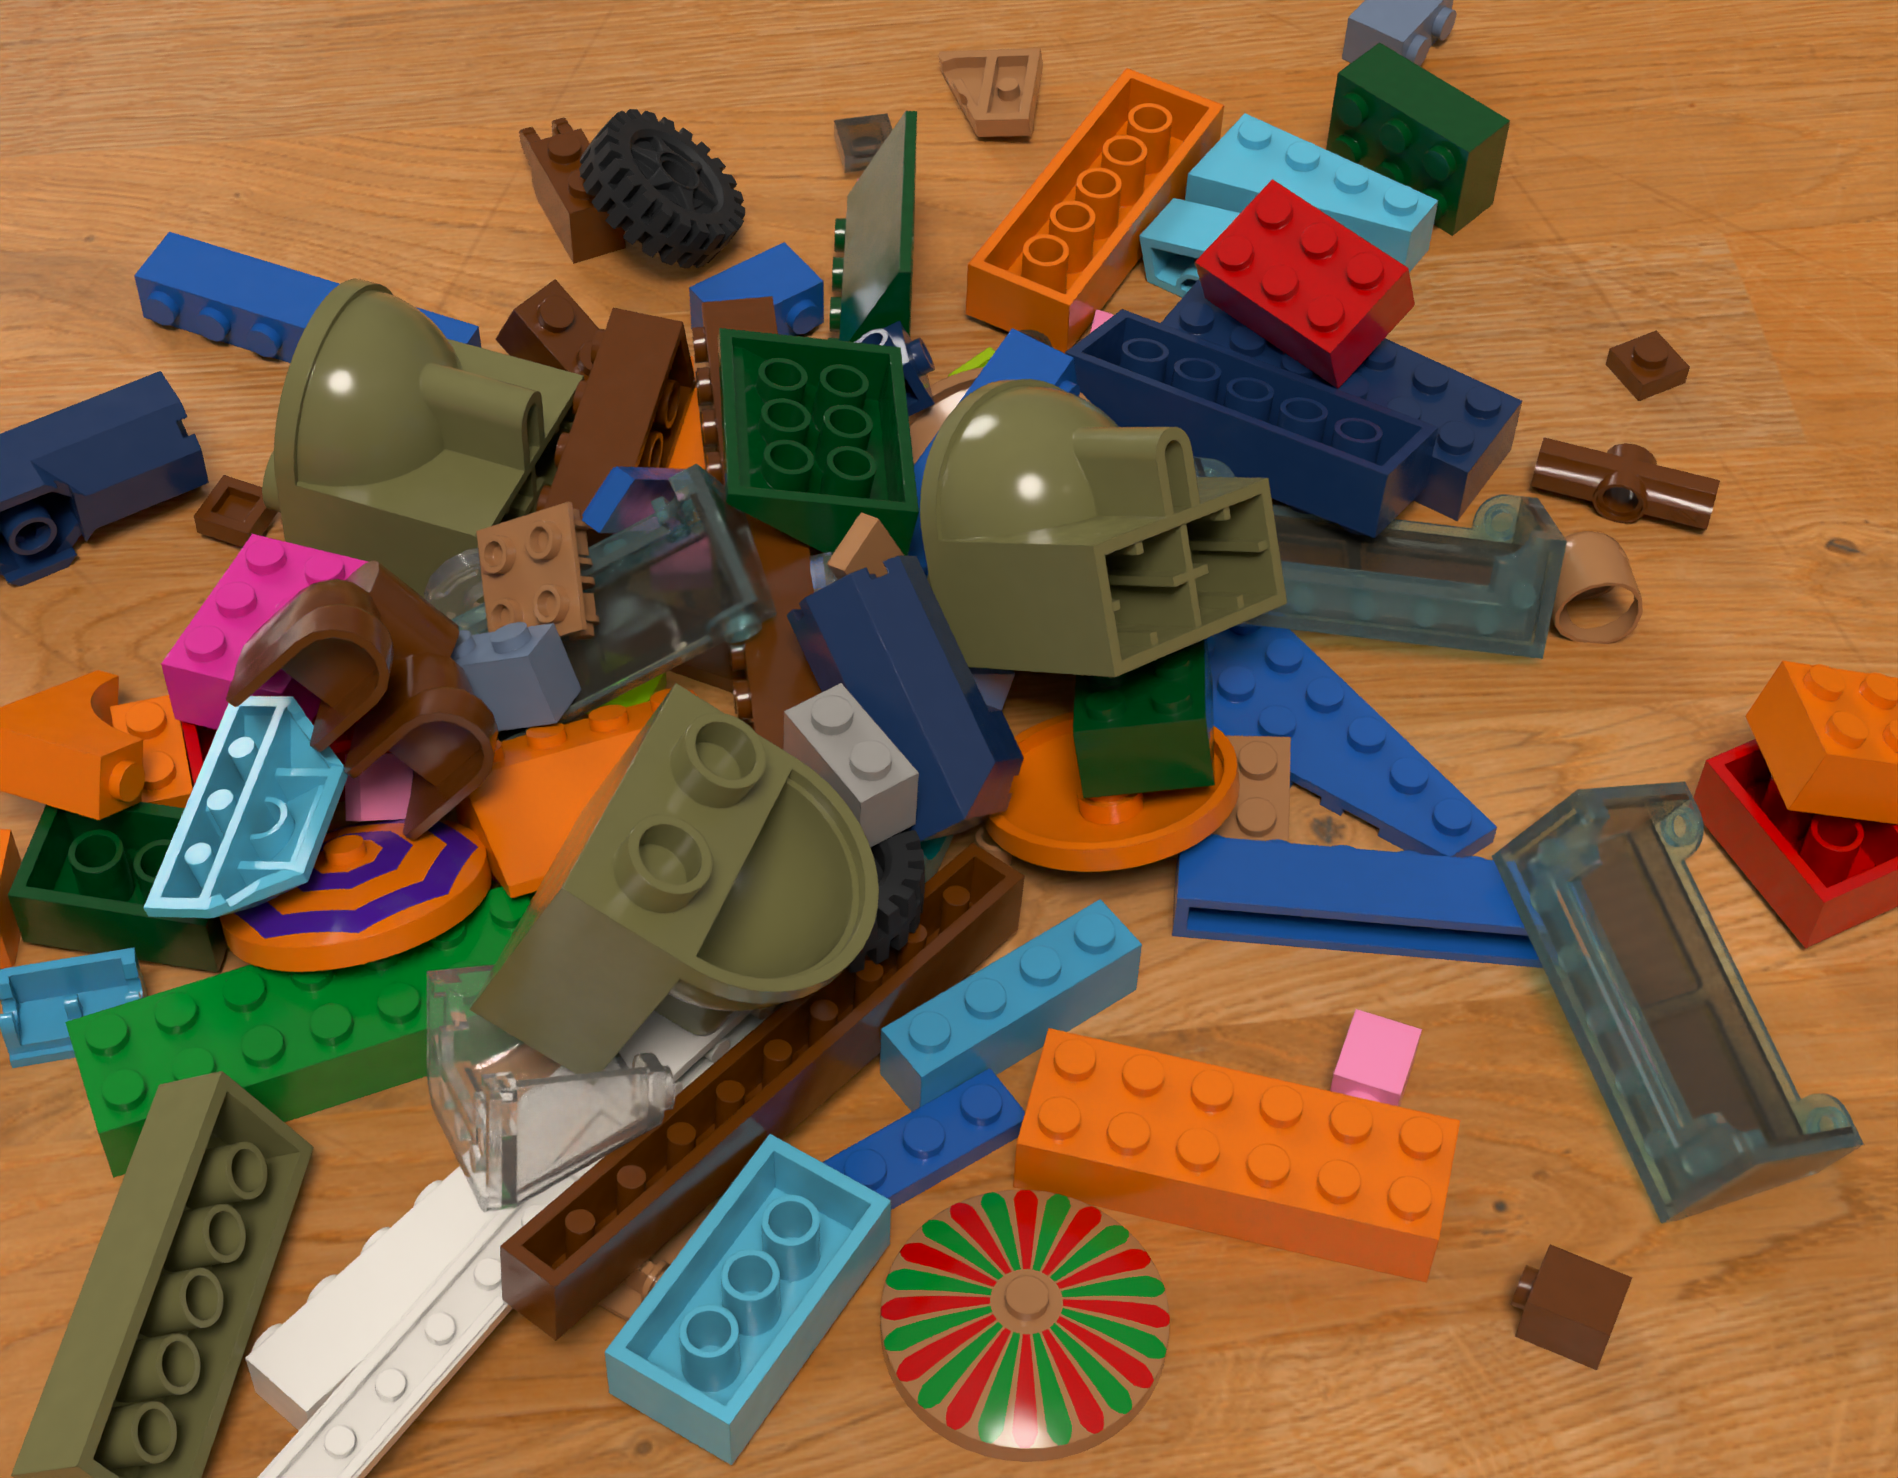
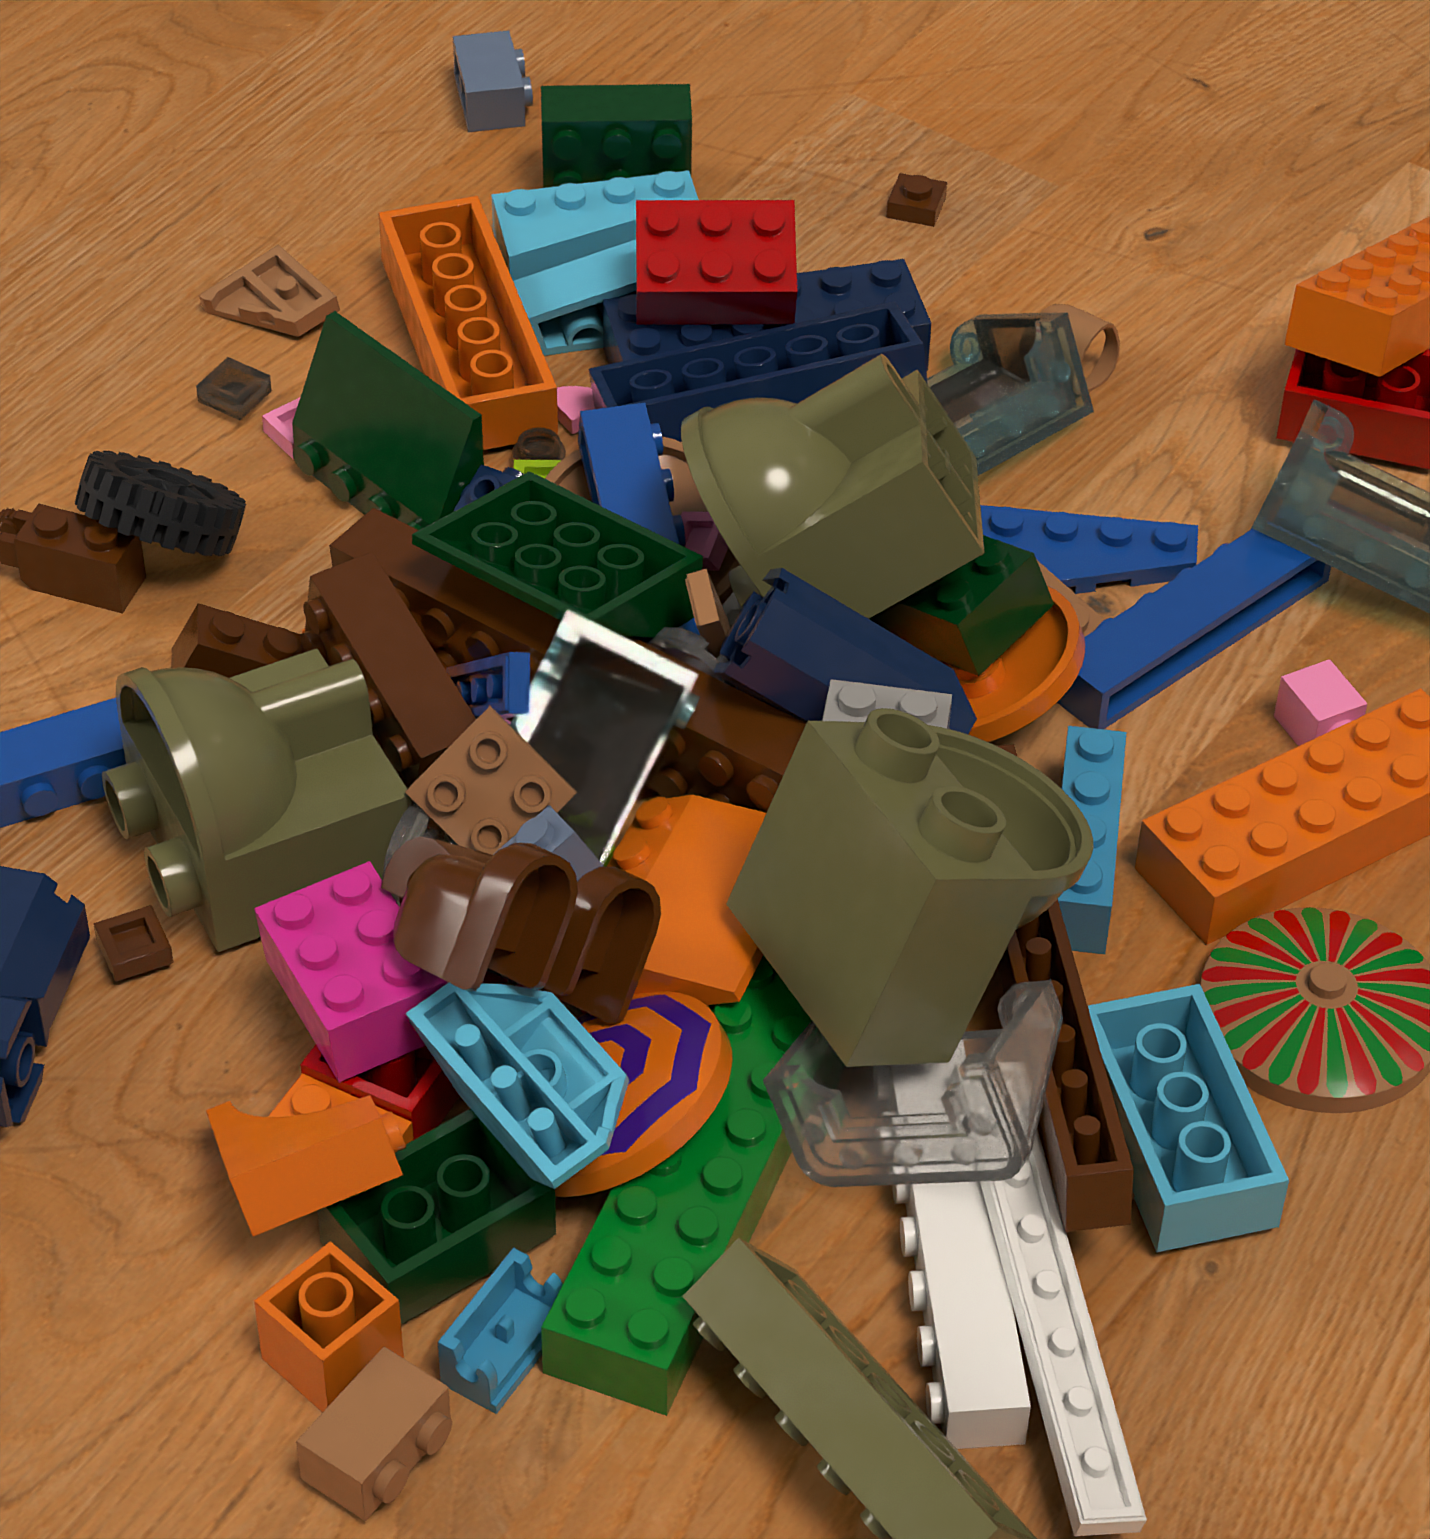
camera: 45 degrees left, 5 degrees down
(775, 273) = (308, 525): blue brick -> none
(934, 1140) = (1136, 943): blue plate -> none
(1625, 483) = (1003, 275): reddish brown piece -> none

